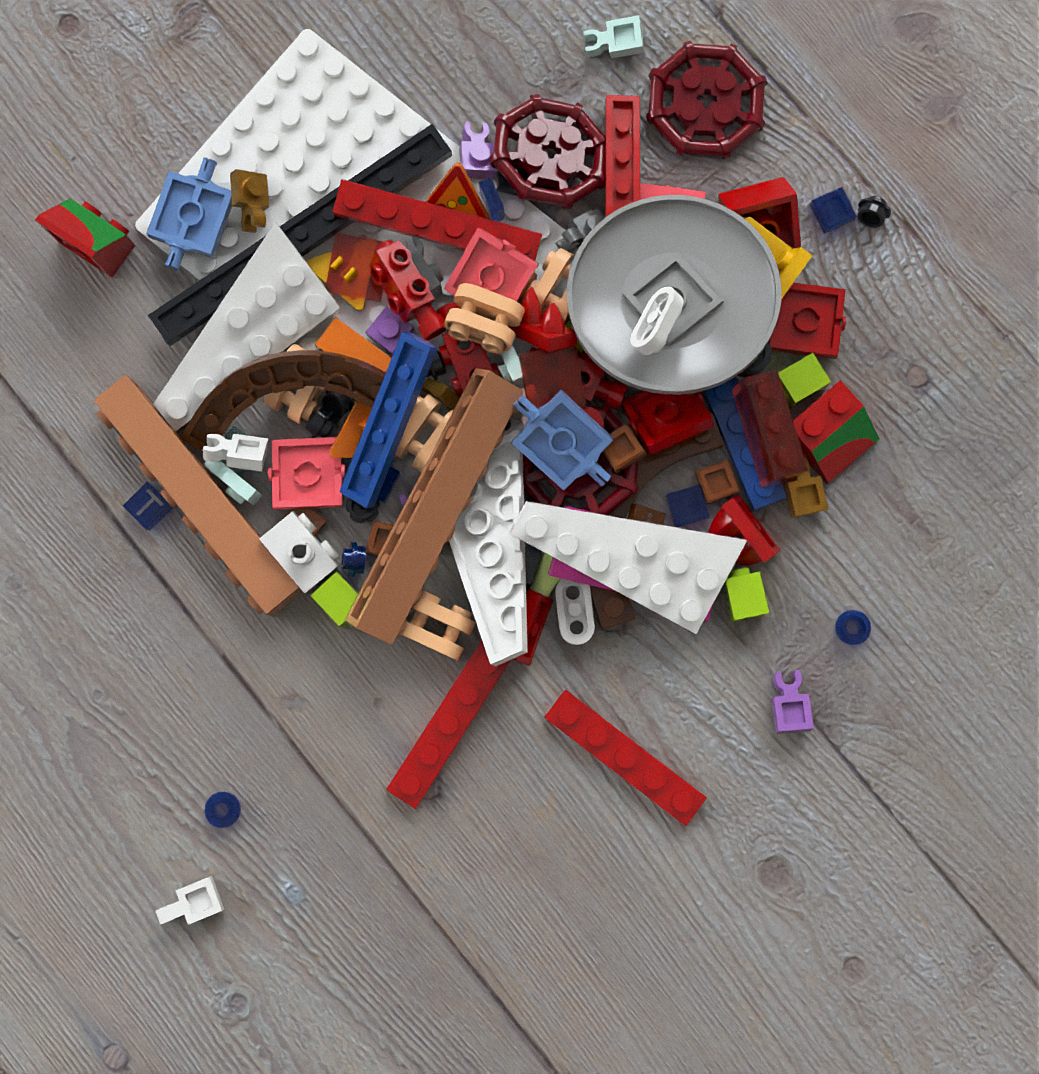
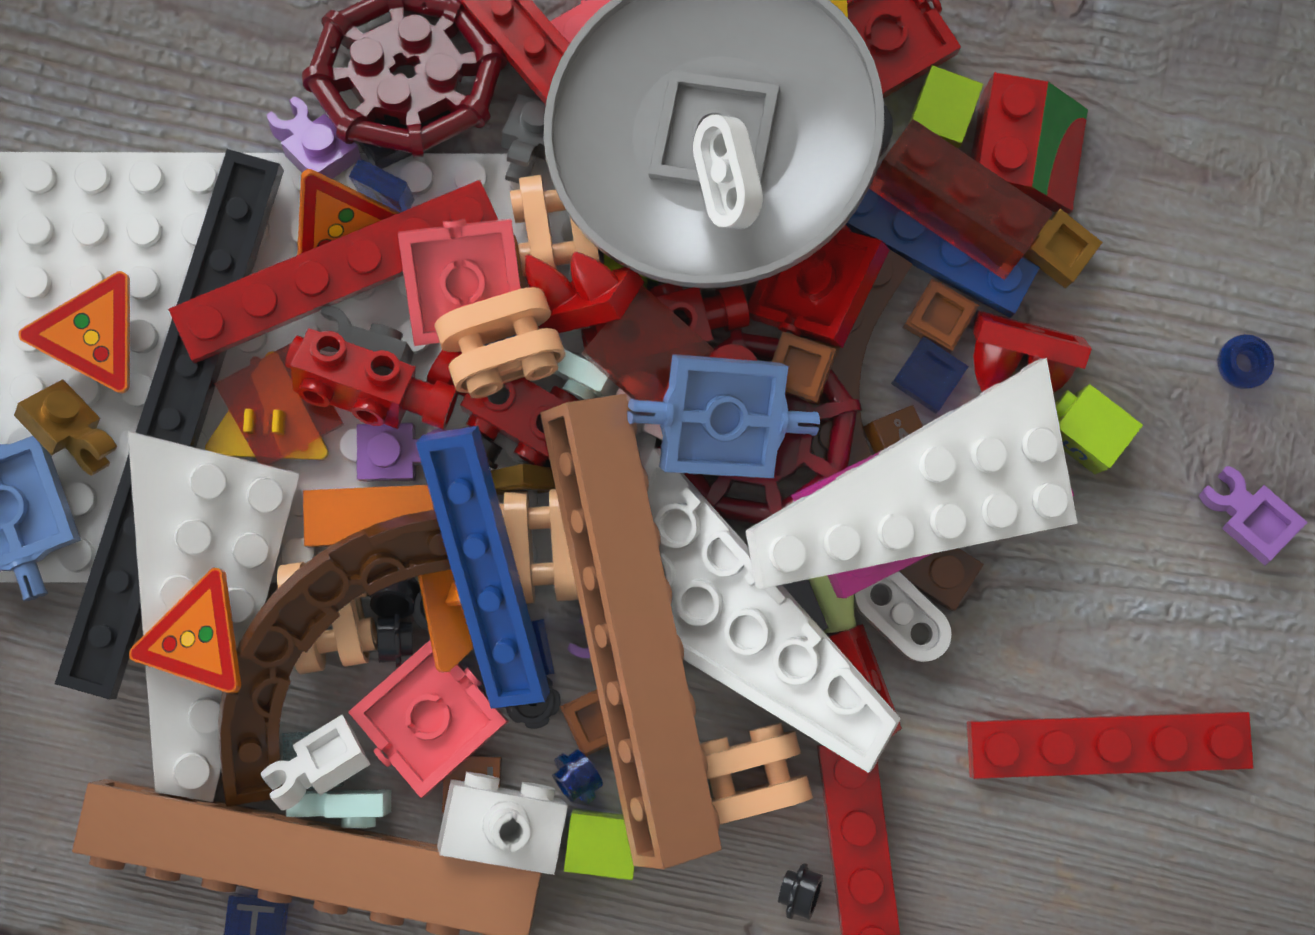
camera: 50 degrees left, 0 degrees up
(229, 344) = (196, 637): none -> piece
(296, 162) = (90, 332): none -> piece
(415, 701) = (800, 892): none -> black plate

